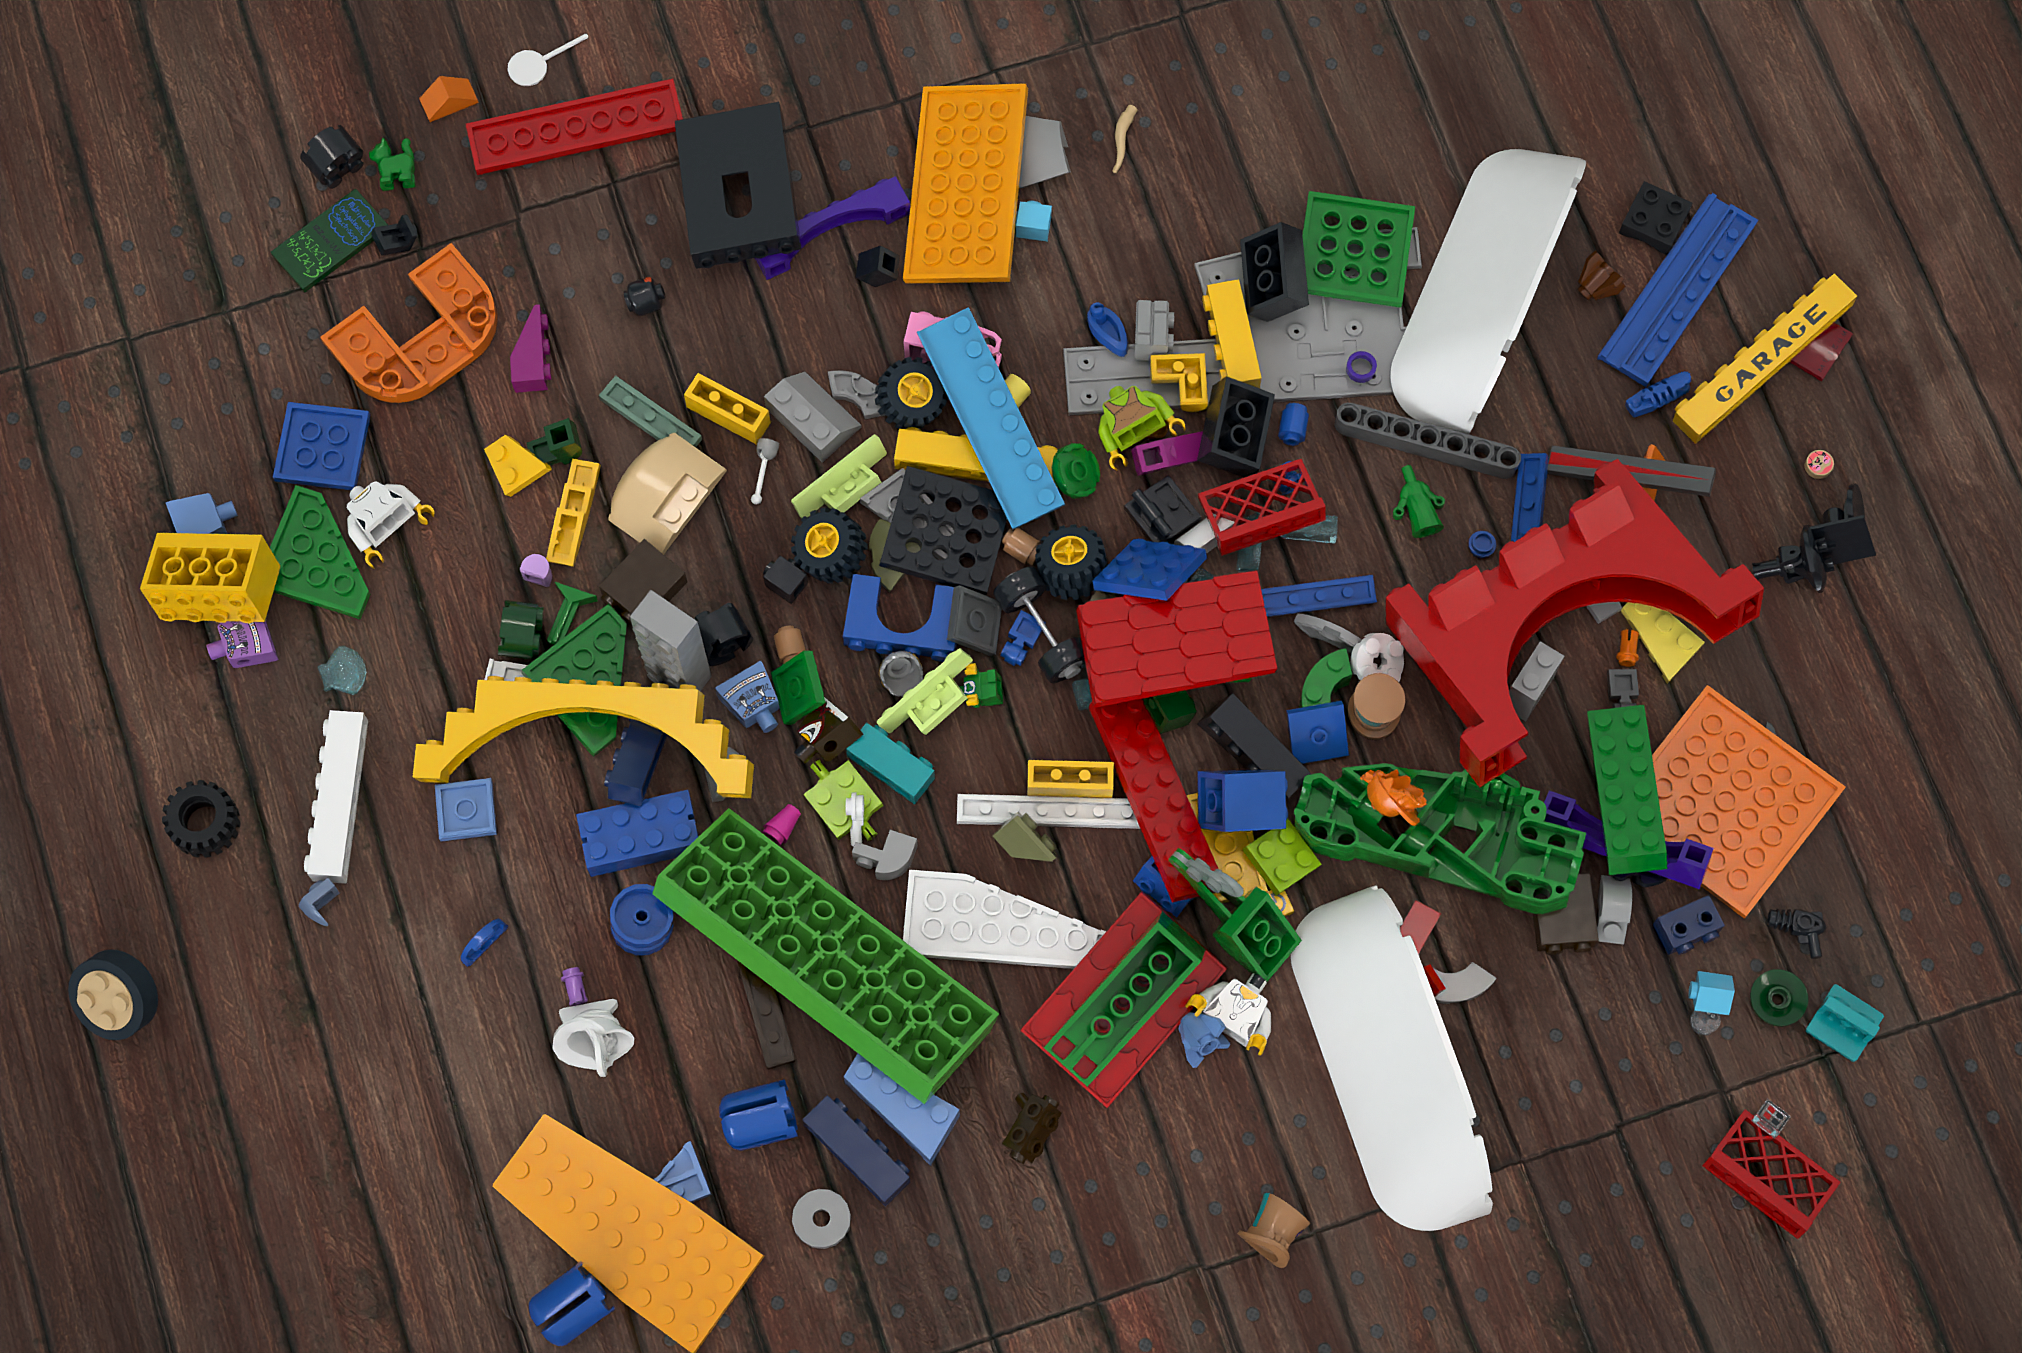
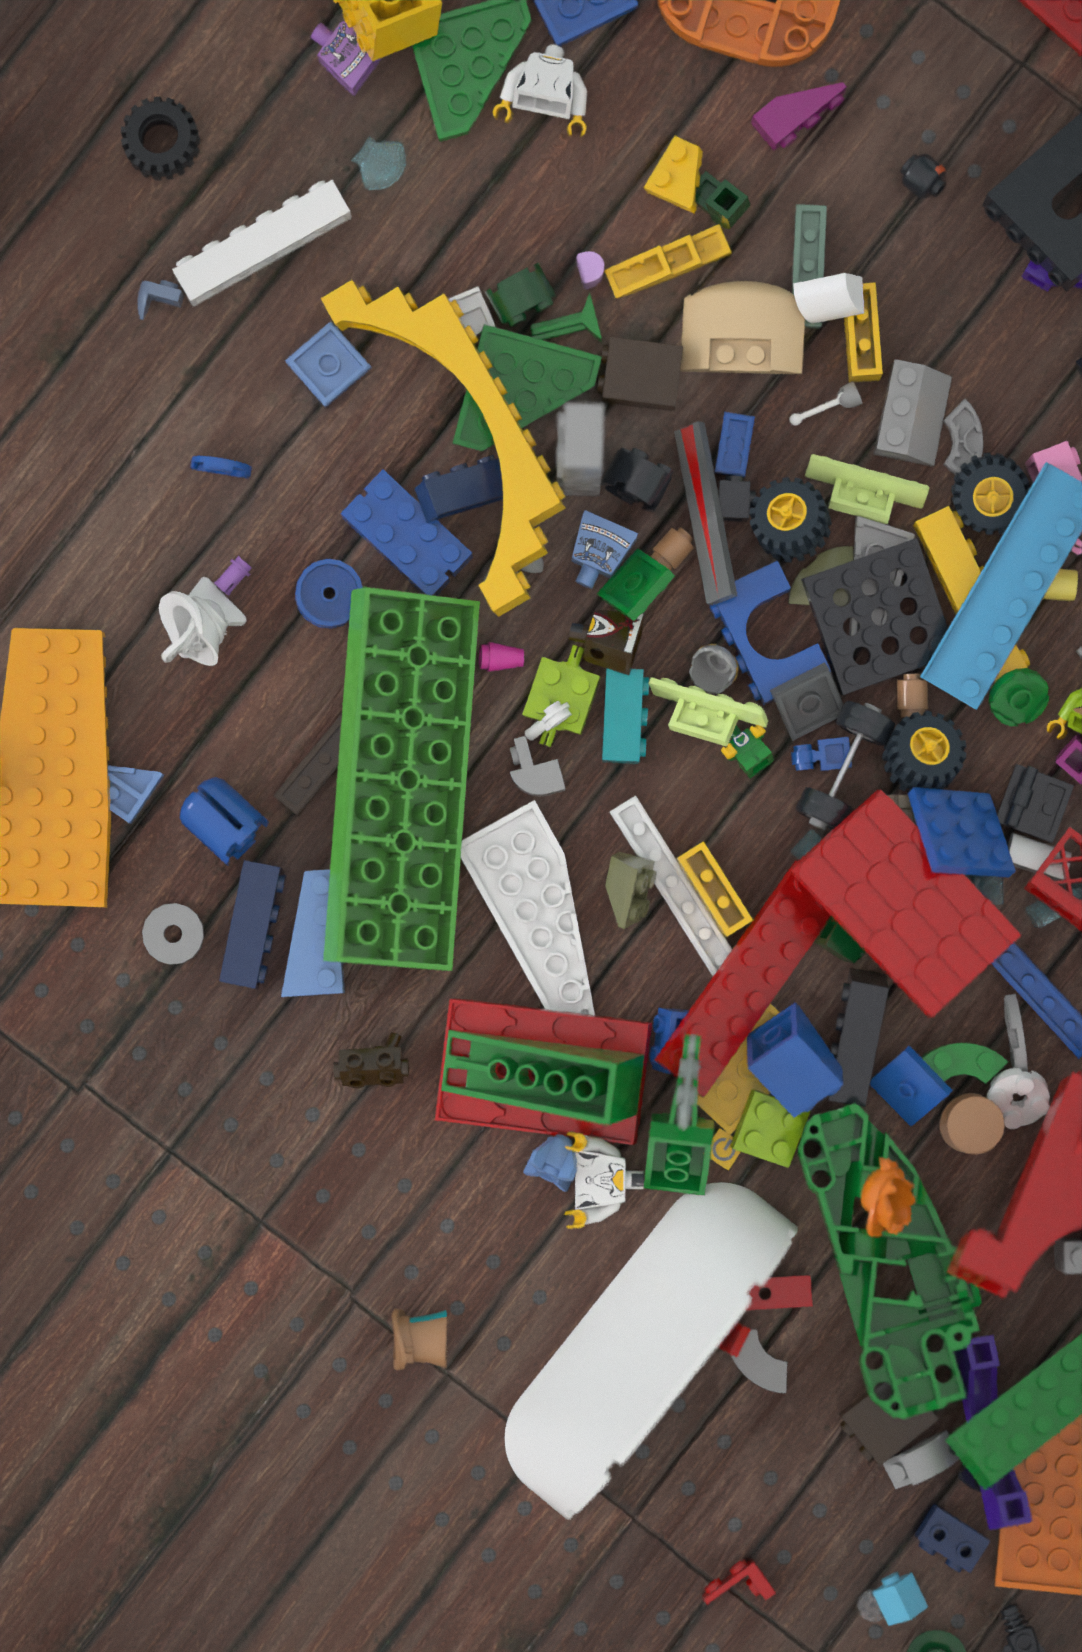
camera: 60 degrees right, 15 degrees up
(685, 410) = (830, 297): none -> white brick
(743, 552) = (734, 444): none -> blue plate
(781, 602) = (705, 513): none -> dark grey tile
(1633, 1095) = (757, 1581): none -> red bracket

